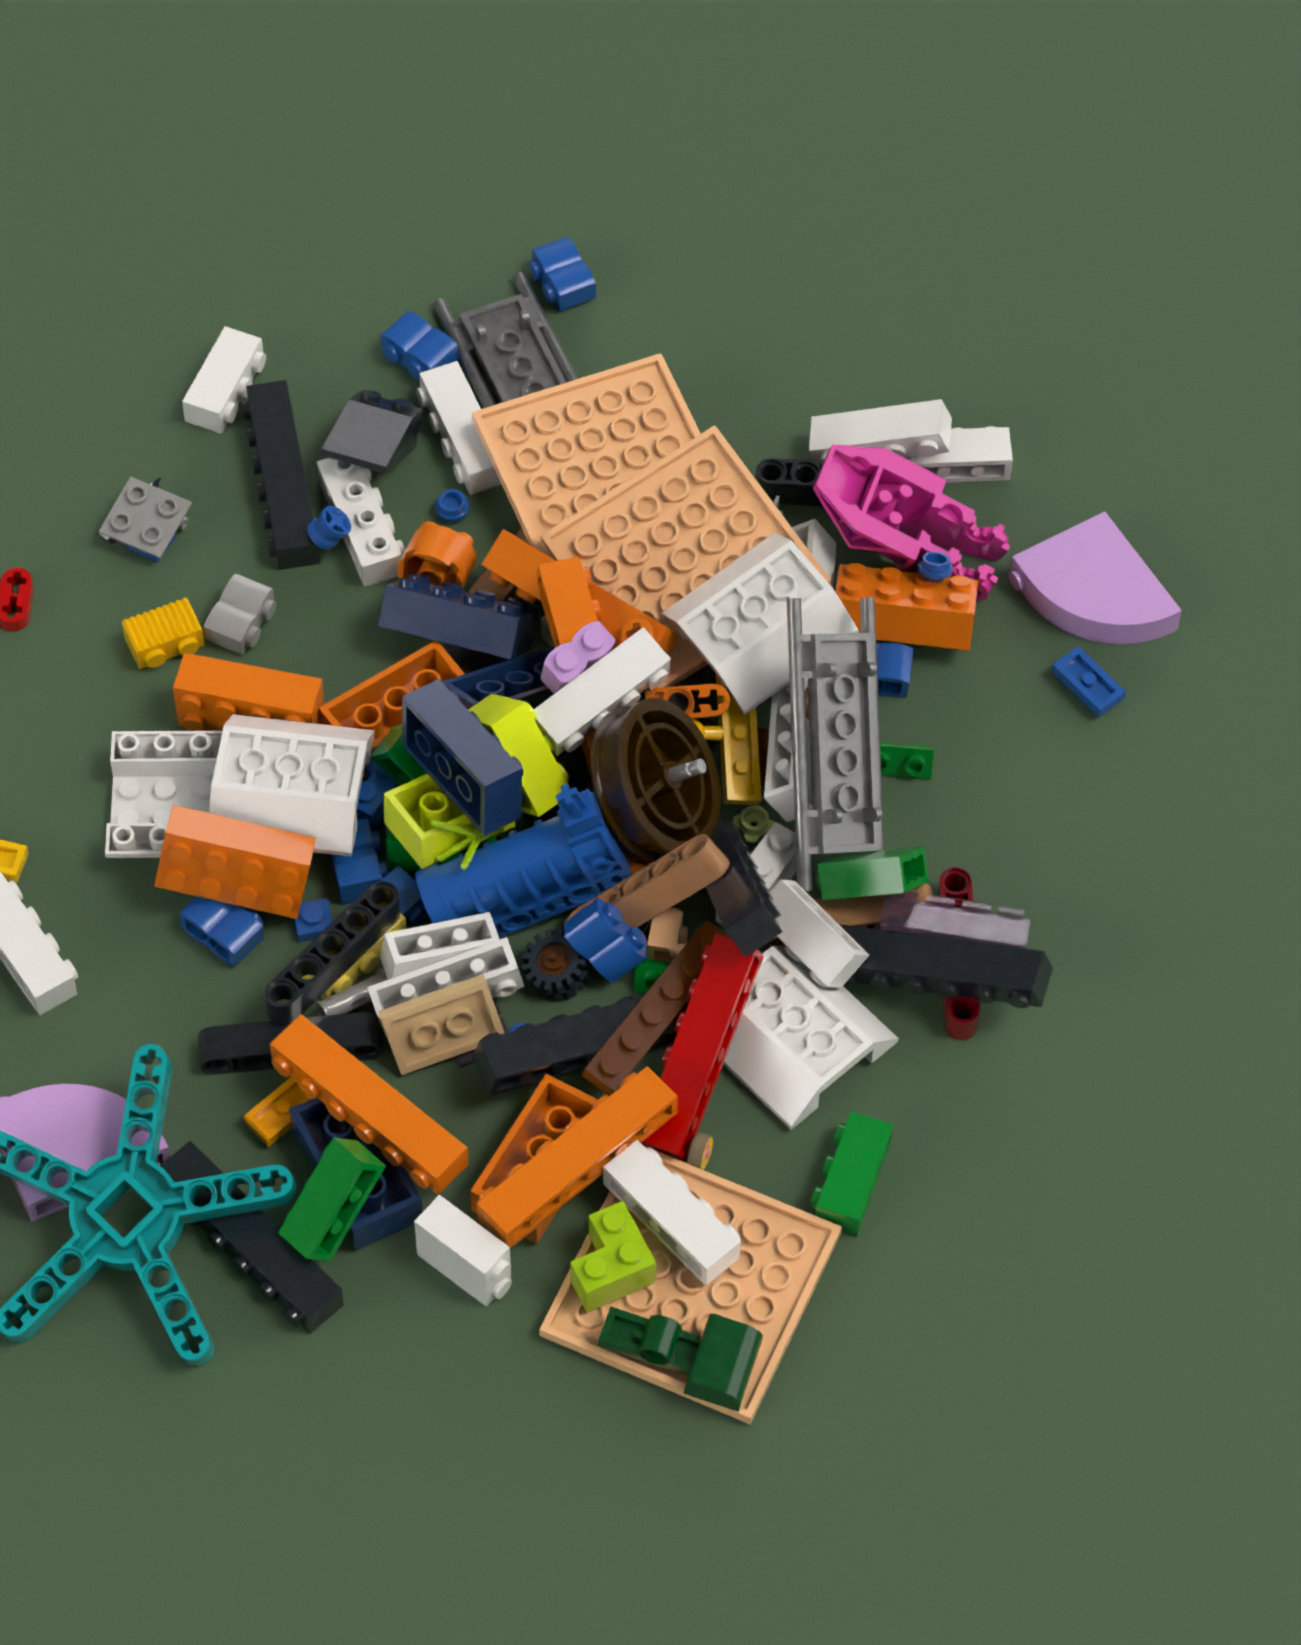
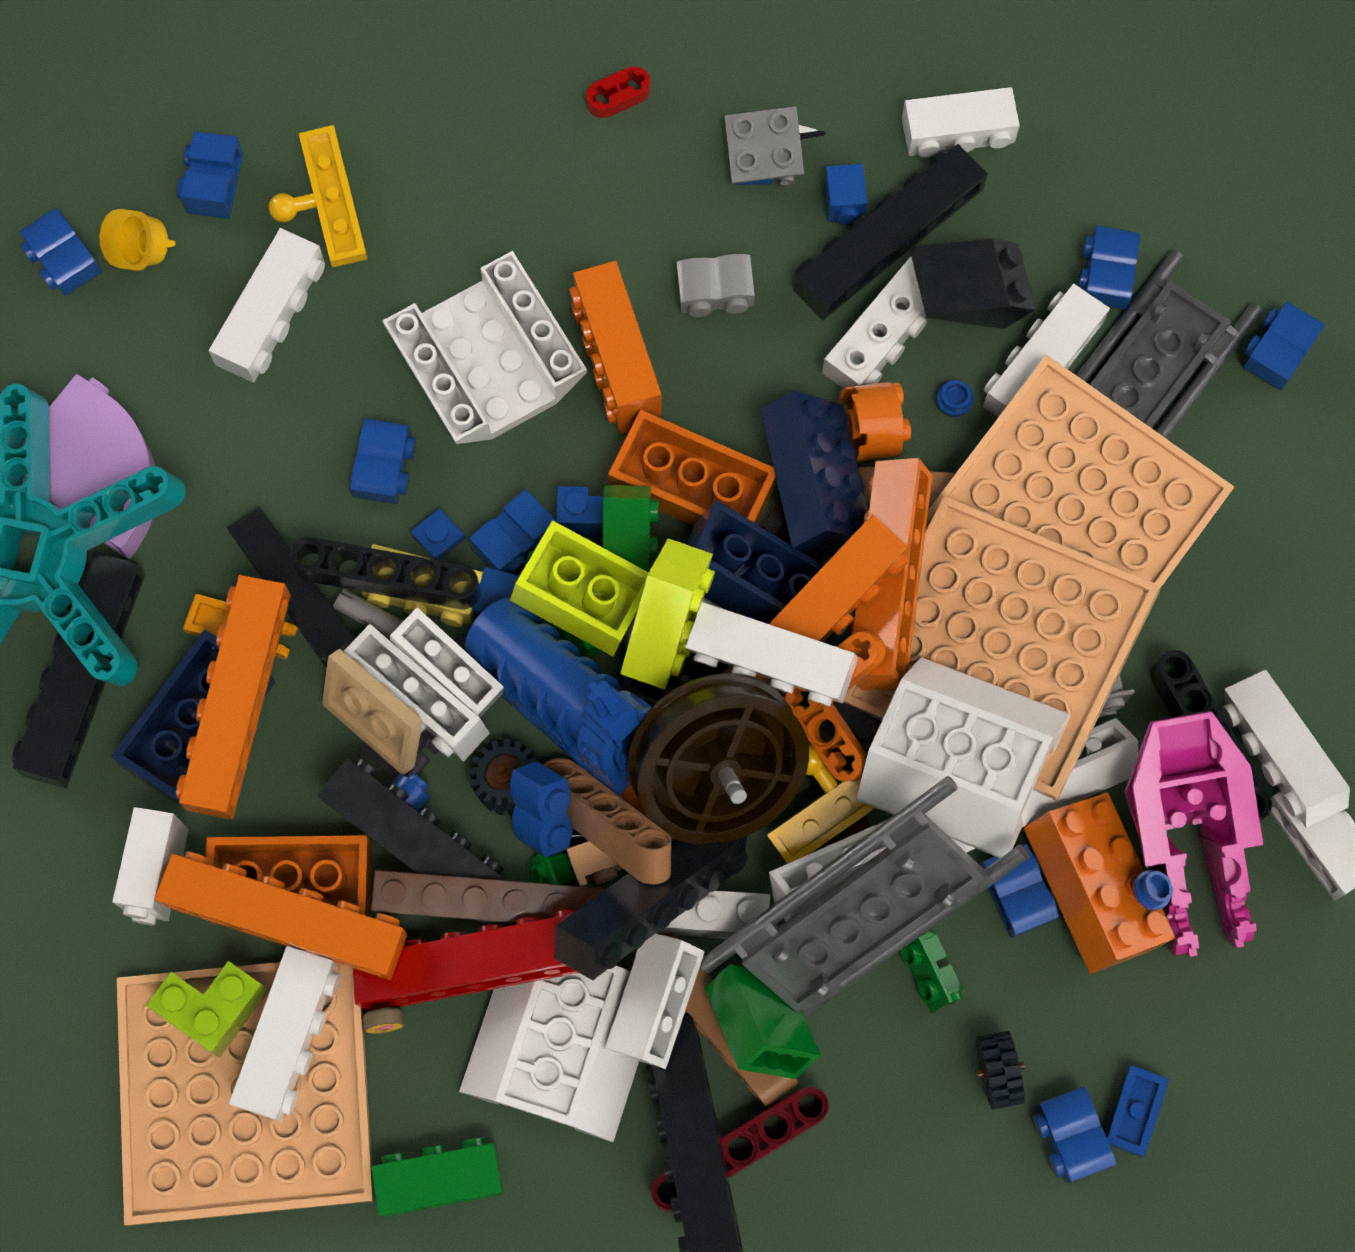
camera: 60 degrees right, 15 degrees up
(163, 633) = (654, 233): yellow brick -> none
(227, 487) = (845, 193): none -> blue brick
(234, 861) = (424, 433): orange brick -> none
(292, 778) = (534, 427): white slope -> none
(329, 527) = (853, 309): blue wheel -> none
(331, 1199) = (121, 720): green brick -> none
(462, 756) = (617, 568): dark blue brick -> none
(473, 839) = (558, 626): lime plant -> none
(575, 657) = (800, 612): lavender brick -> none
(715, 1363) = (158, 1160): dark green plate -> none
(750, 815) = (769, 861): yellowish green plate -> none
(941, 919) = (754, 1144): windscreen -> none
(1005, 745) = (1000, 1070): none -> black wheel
(1082, 728) = (1074, 1135): none -> blue brick
(1095, 585) = (1255, 1057): lavender brick -> none

